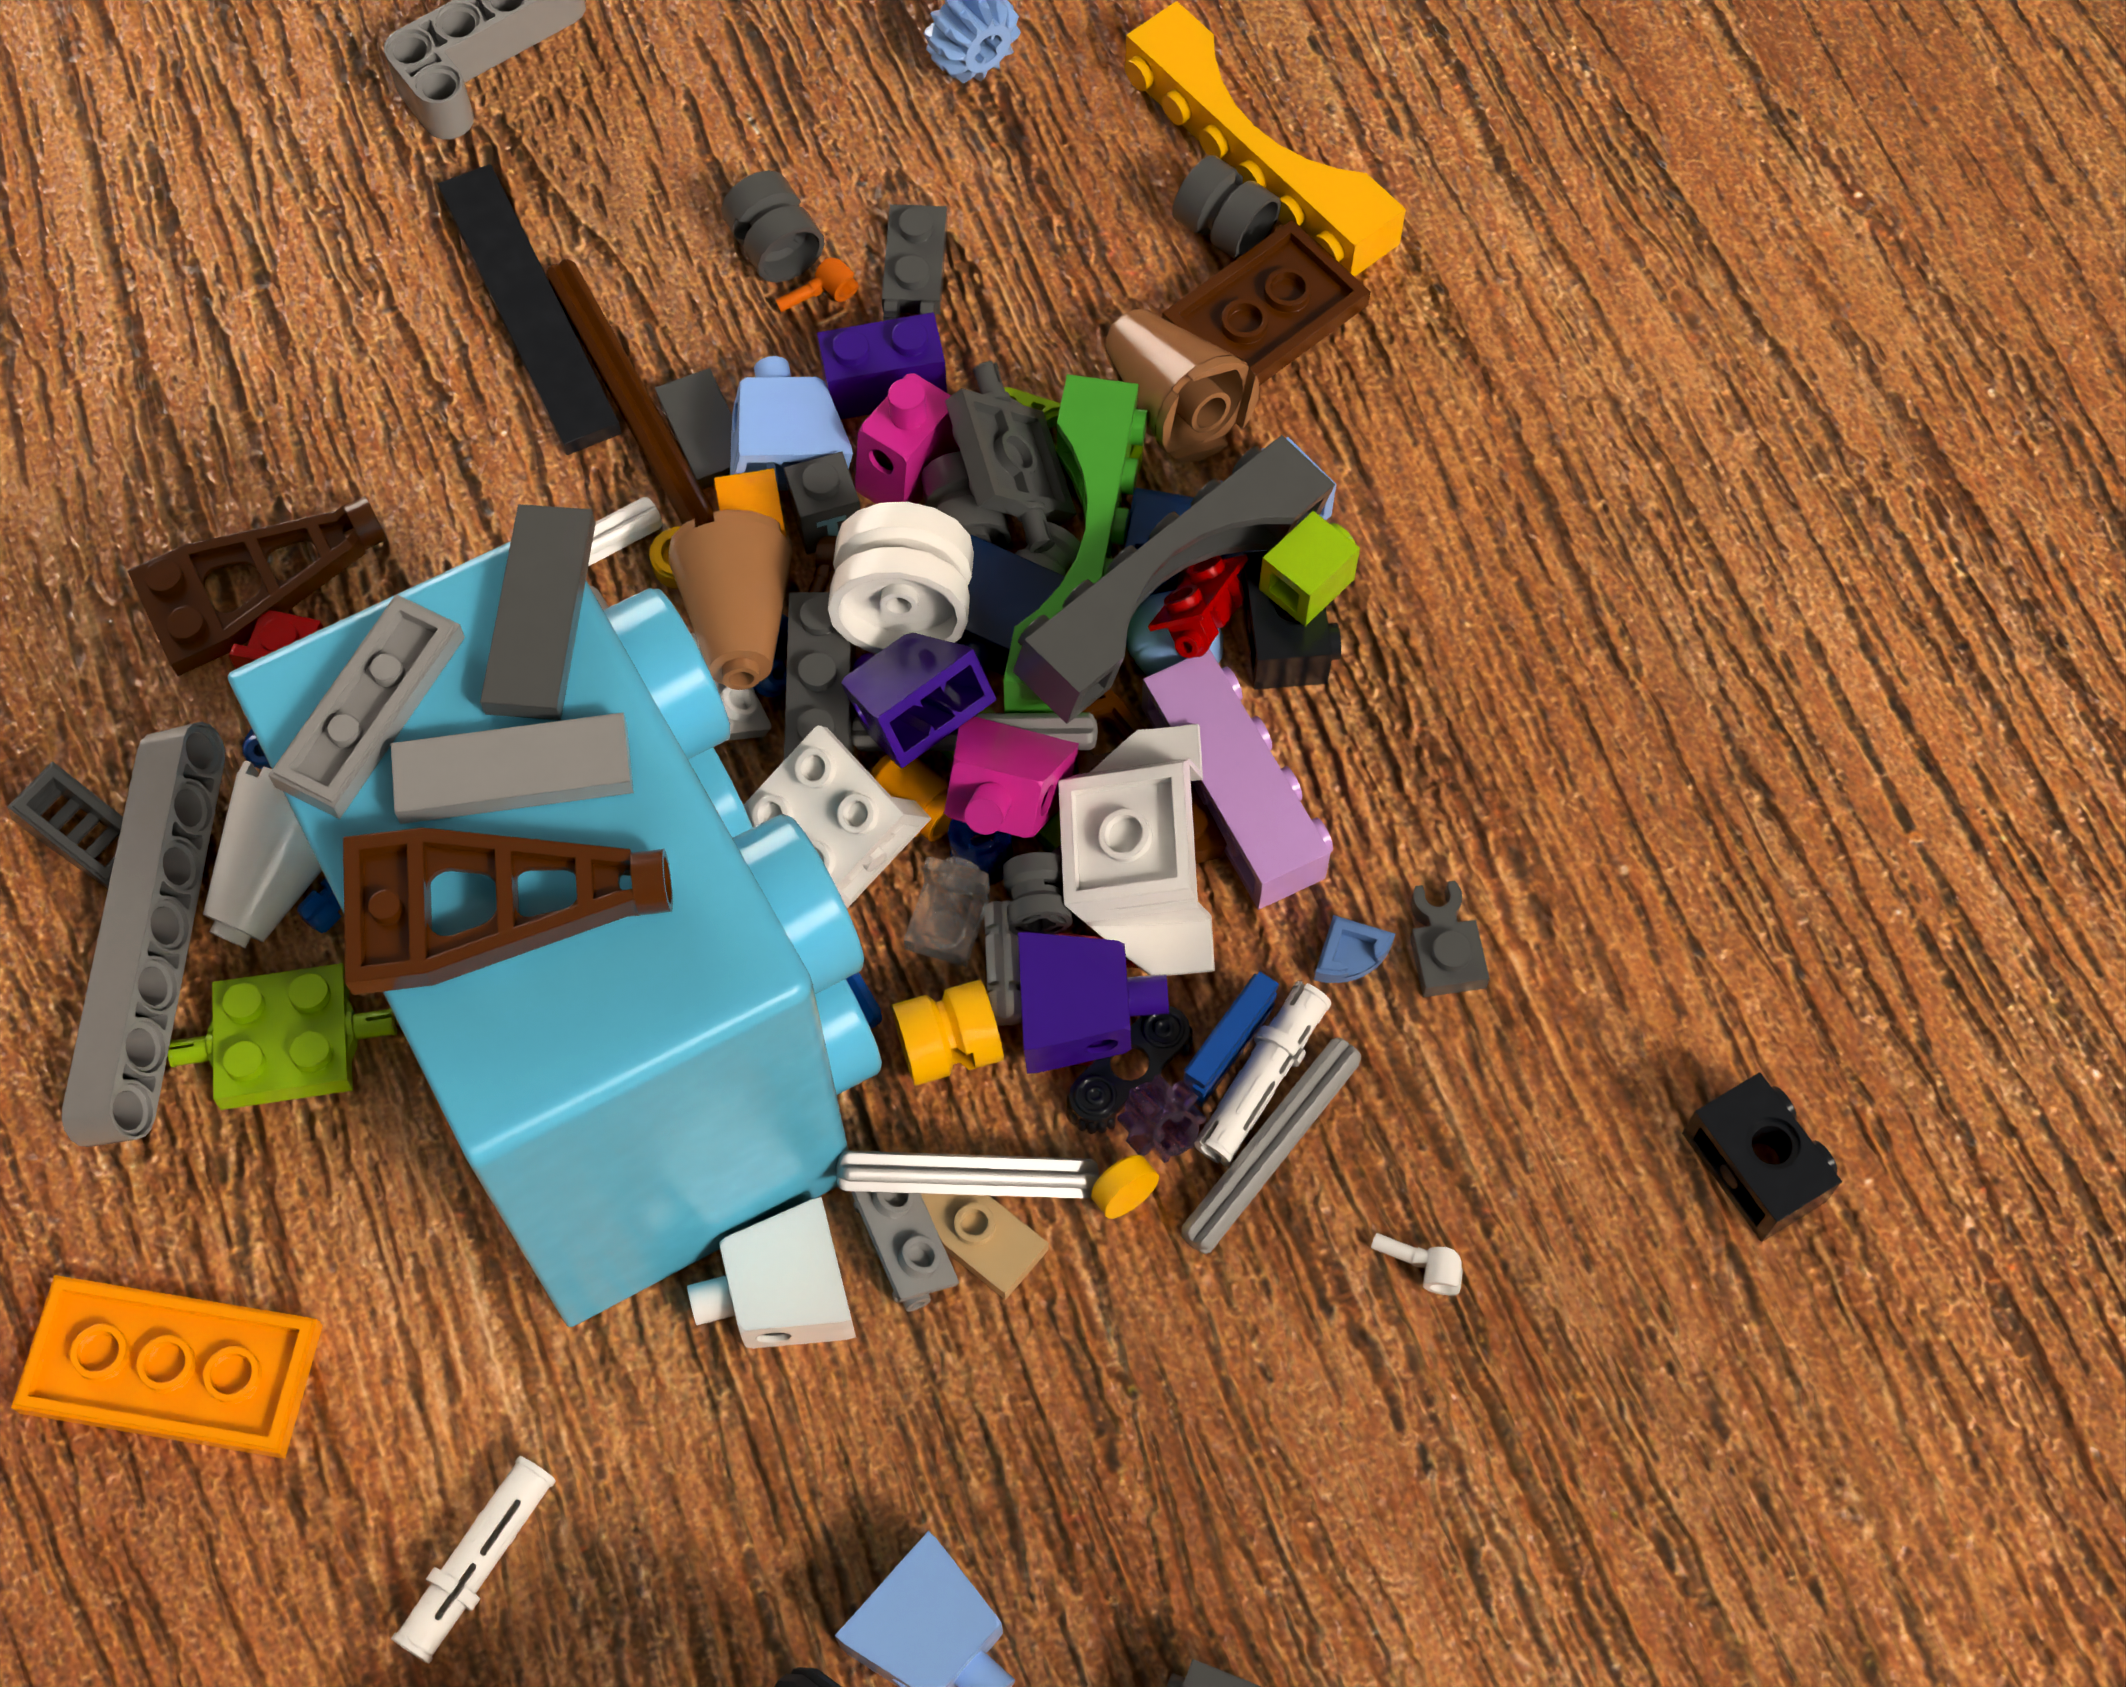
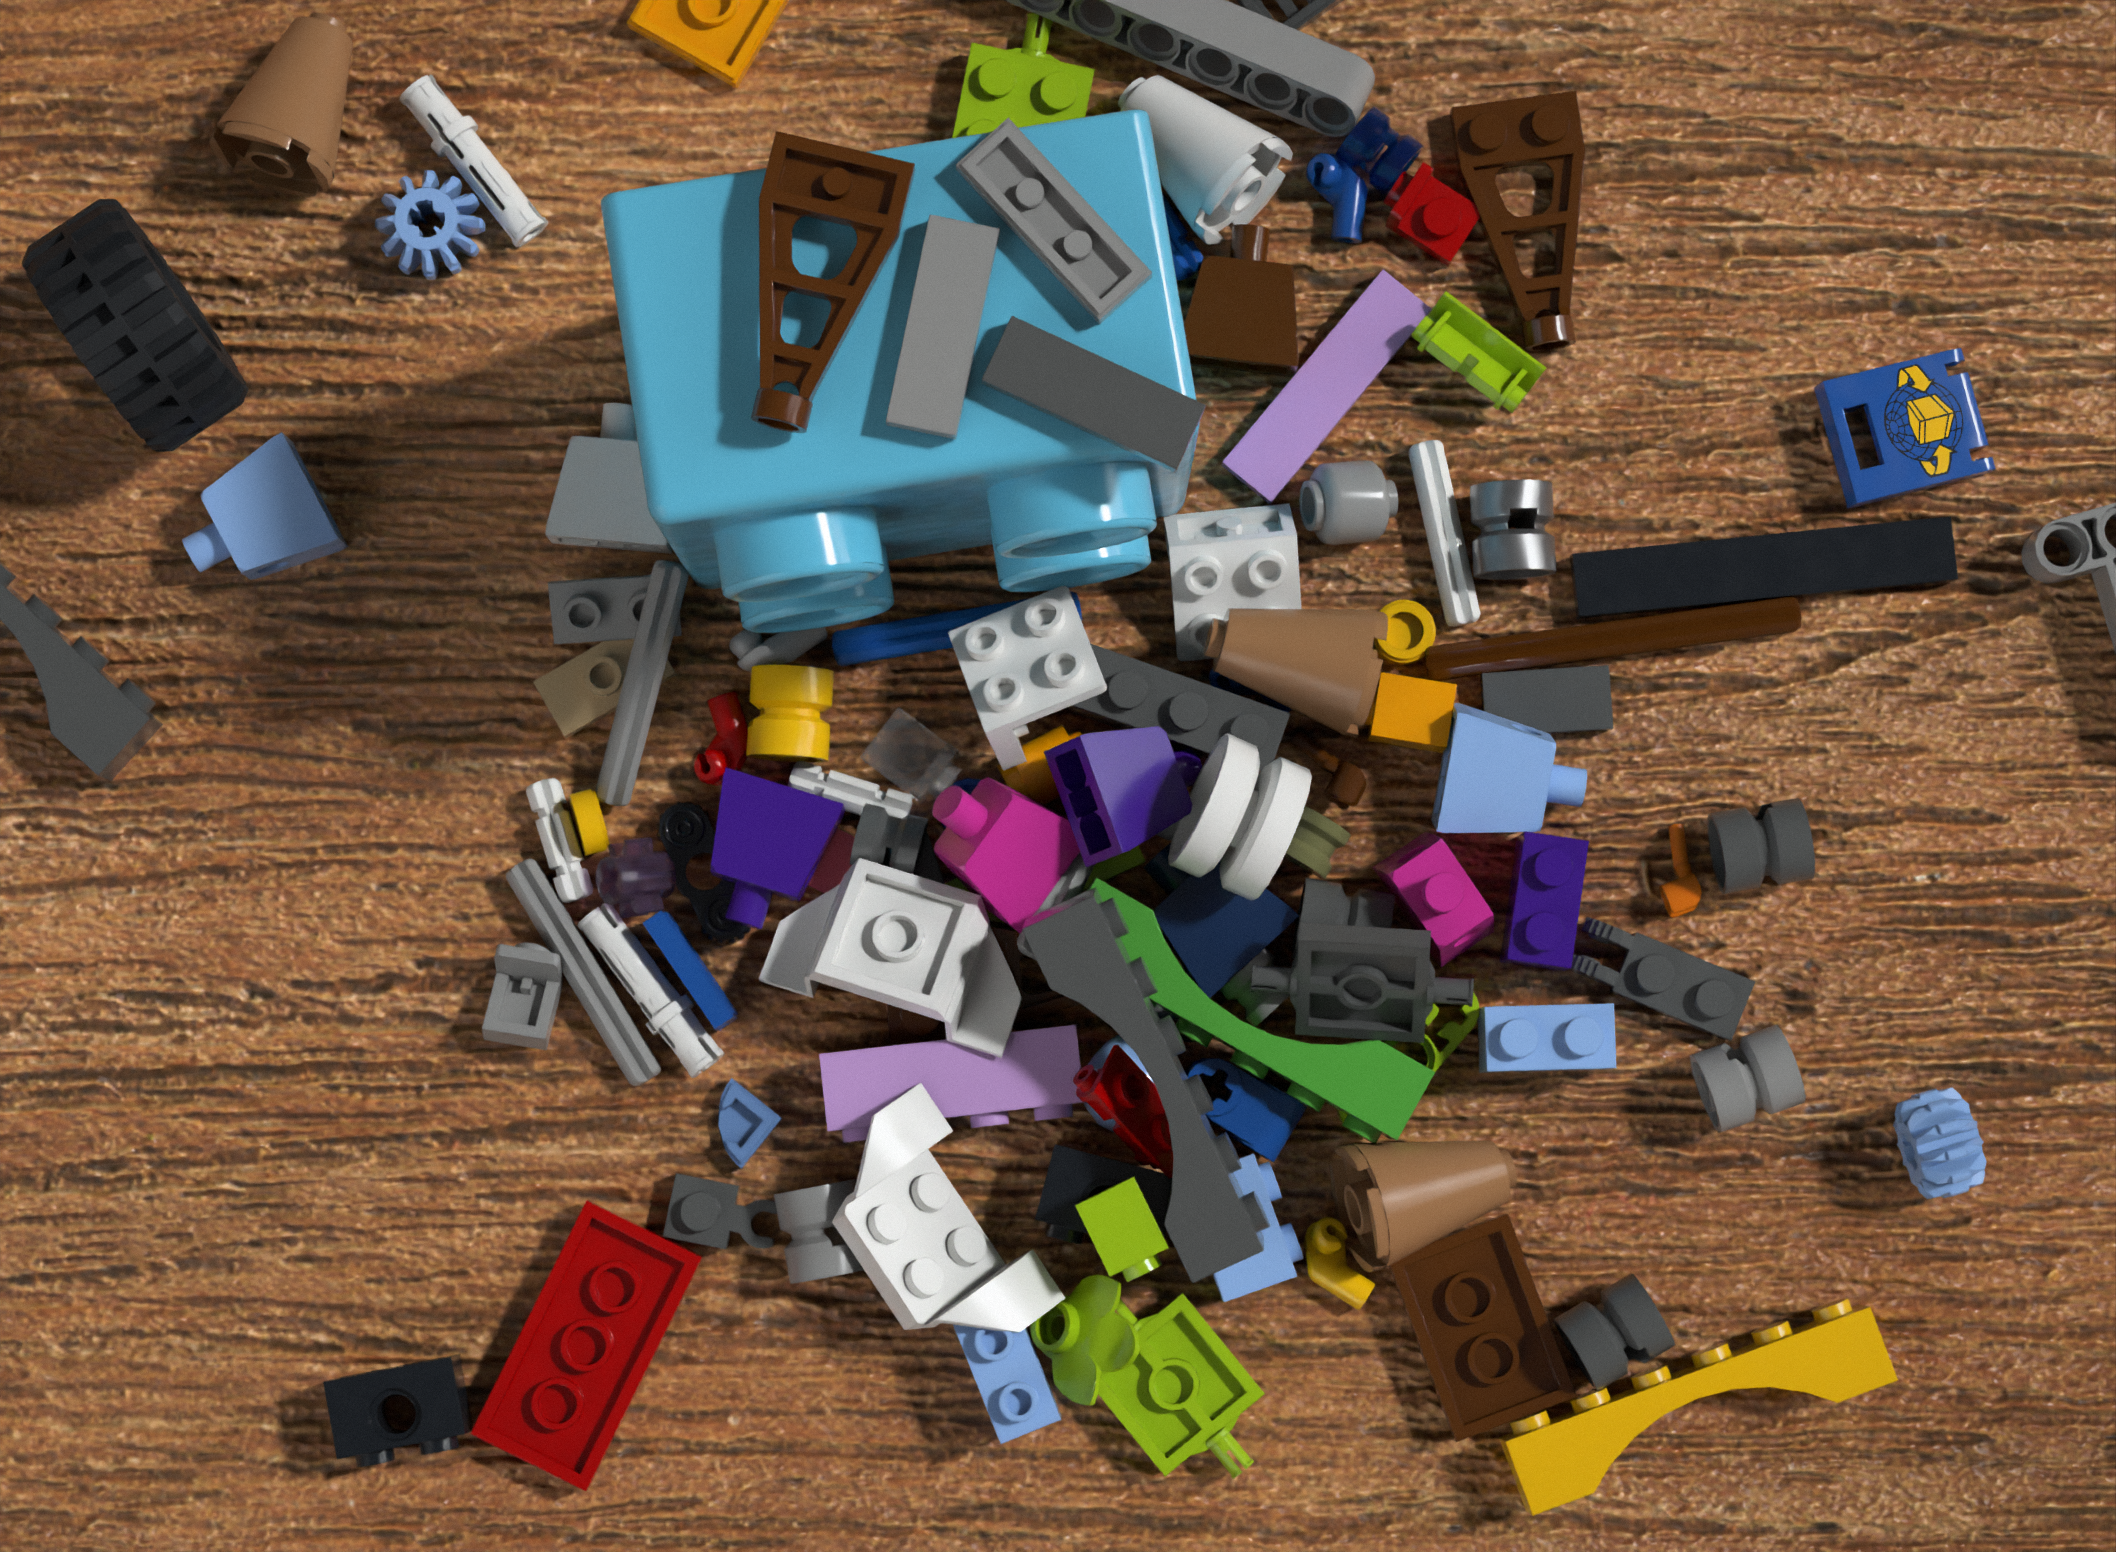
camera: 110 degrees right, 20 degrees up
(221, 710) = (1369, 140): none -> clear blue wheel
(363, 225) = (1918, 423): none -> blue container
(403, 556) = (1478, 352): none -> lime hinge
(534, 1567) = (452, 211): none -> light blue gear
(562, 481) = (1512, 552): none -> flat silver wheel
(820, 497) = (1401, 788): dark grey brick -> none
(898, 1089) = (776, 650): none -> light grey arm
(974, 179) = (1748, 1078): none -> light grey wheel
(998, 1088) = (728, 745): none -> red arm
(1001, 324) = (1546, 1038): none -> light blue brick
(1152, 1213) = (559, 840): none -> white axle
(1272, 425) = (1328, 1263): none -> yellow arm
(1320, 1184) = (523, 996): none -> light grey bracket
(1401, 732) = (924, 1240): none -> white piece
(1416, 579) = (1086, 1338): none -> lime plate
(1423, 517) = (1180, 1389): none -> lime plate
(1429, 830) = (816, 1244): none -> light grey wheel
(1441, 1264) = (413, 1077): white hand -> none
(1472, 644) = (1009, 1380): none -> light blue brick
(1621, 1009) = (586, 1345): none -> red plate

